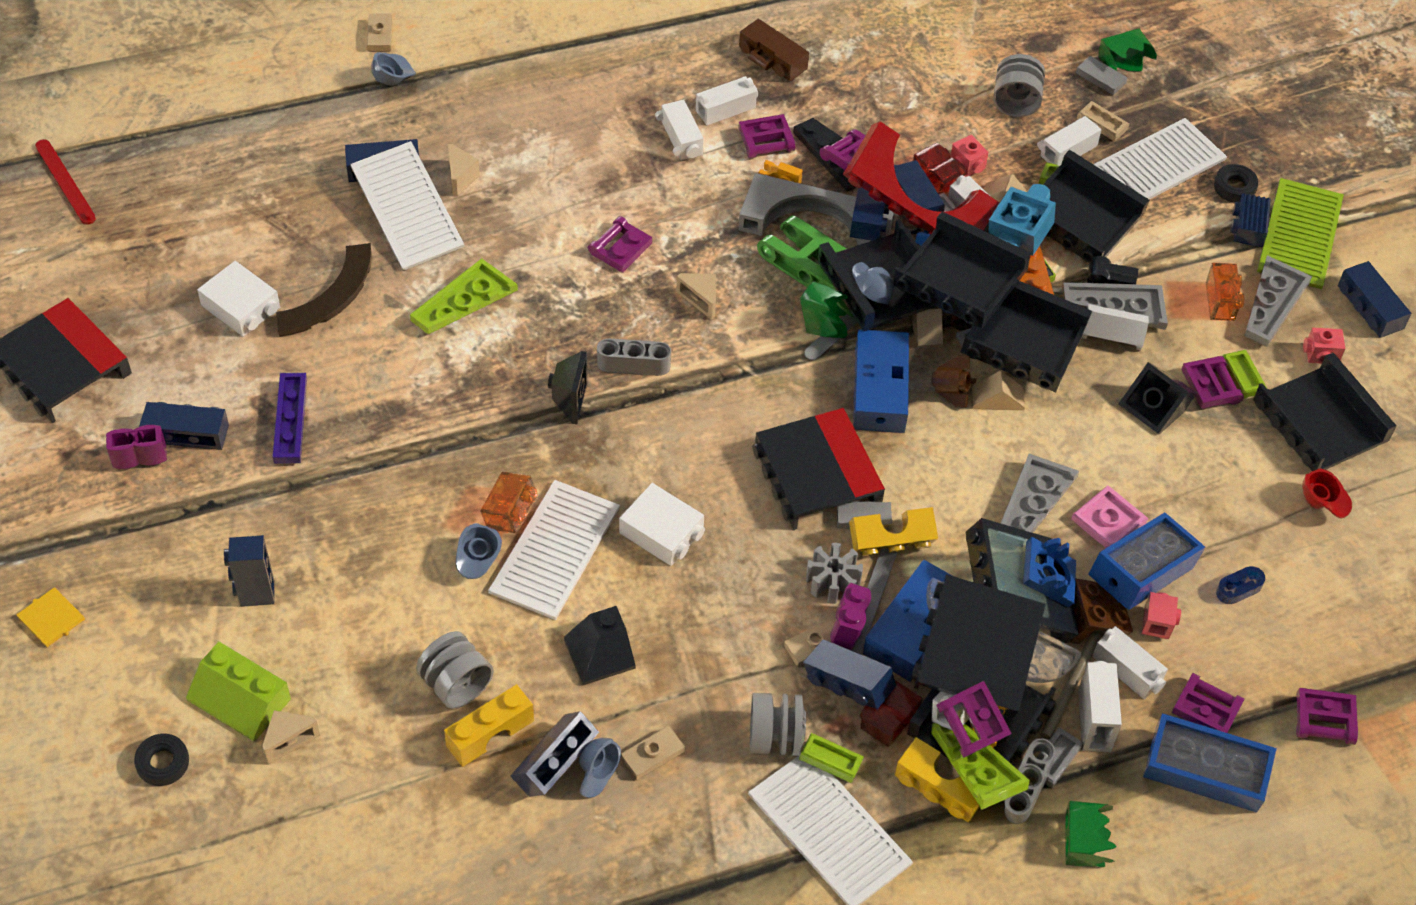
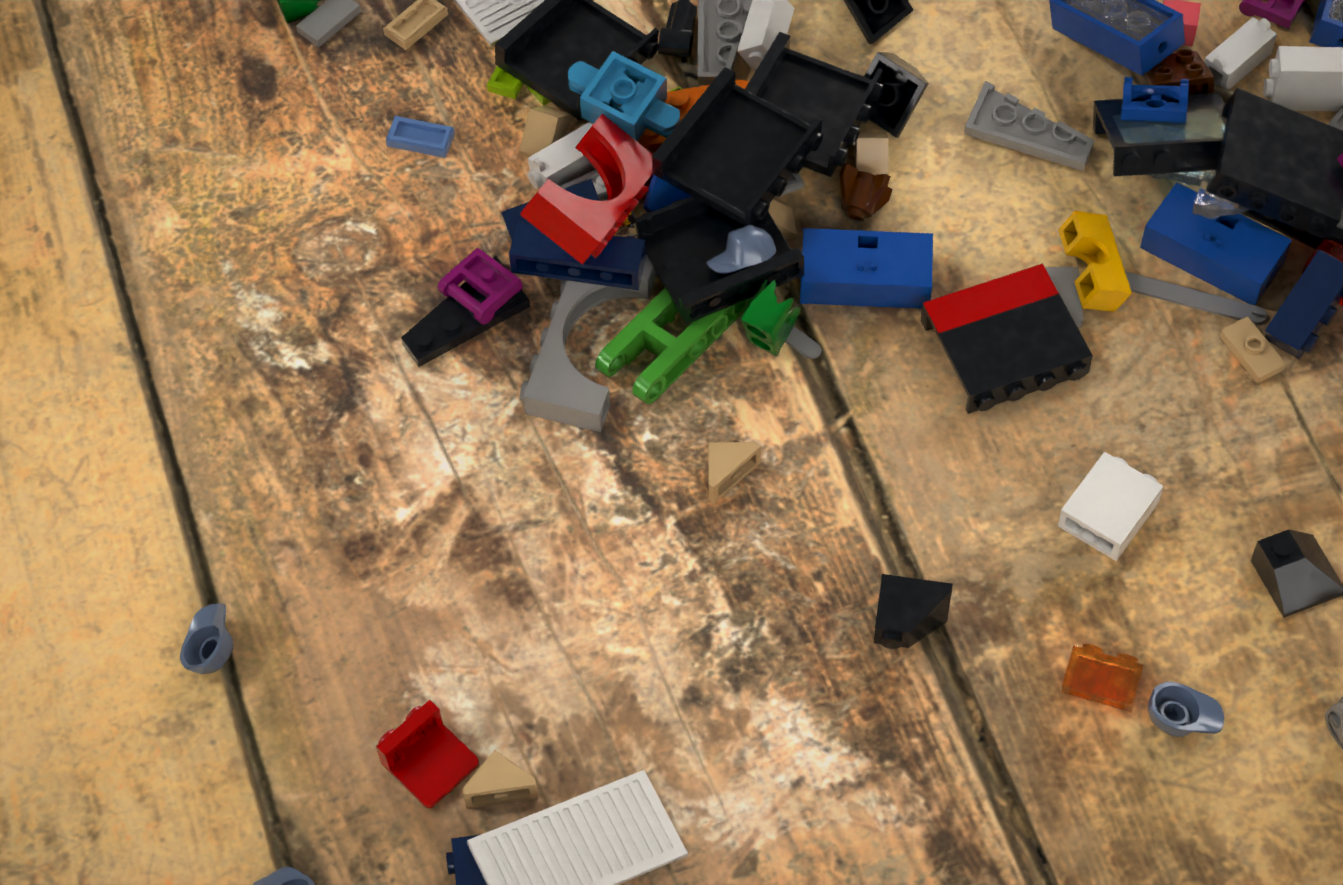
camera: 85 degrees left, 5 degrees up
(464, 295) = (736, 756): lime wing -> none
(486, 133) = (426, 755): none -> red bracket
(554, 549) = (1164, 631): white window -> none
(570, 29) = (207, 641): none -> sand blue piece
(625, 250) = (641, 562): magenta plate -> none
(633, 357) = (843, 557): light grey beam -> none
(681, 129) = (425, 493): white brick -> none
(726, 100) = (367, 439): white brick -> none
(763, 130) = (424, 397): magenta plate -> none
(773, 50) = (269, 382): reddish brown piece -> none
(782, 171) = (514, 369): light orange plate -> none
(833, 571) = (1158, 324): light grey gear -> none
(850, 616) = (1228, 302): magenta brick -> none
(939, 167) = (501, 192): clear red brick -> none
(970, 154) = (479, 162): coral brick -> none
(995, 128) = (420, 136): none -> medium blue tile
(1019, 85) = (365, 95): light grey wheel -> none
(1068, 405) = (901, 93): none -> black slope
(1077, 137) = (456, 55): white brick -> none
(1108, 517) = (1040, 63): bright pink tile -> none

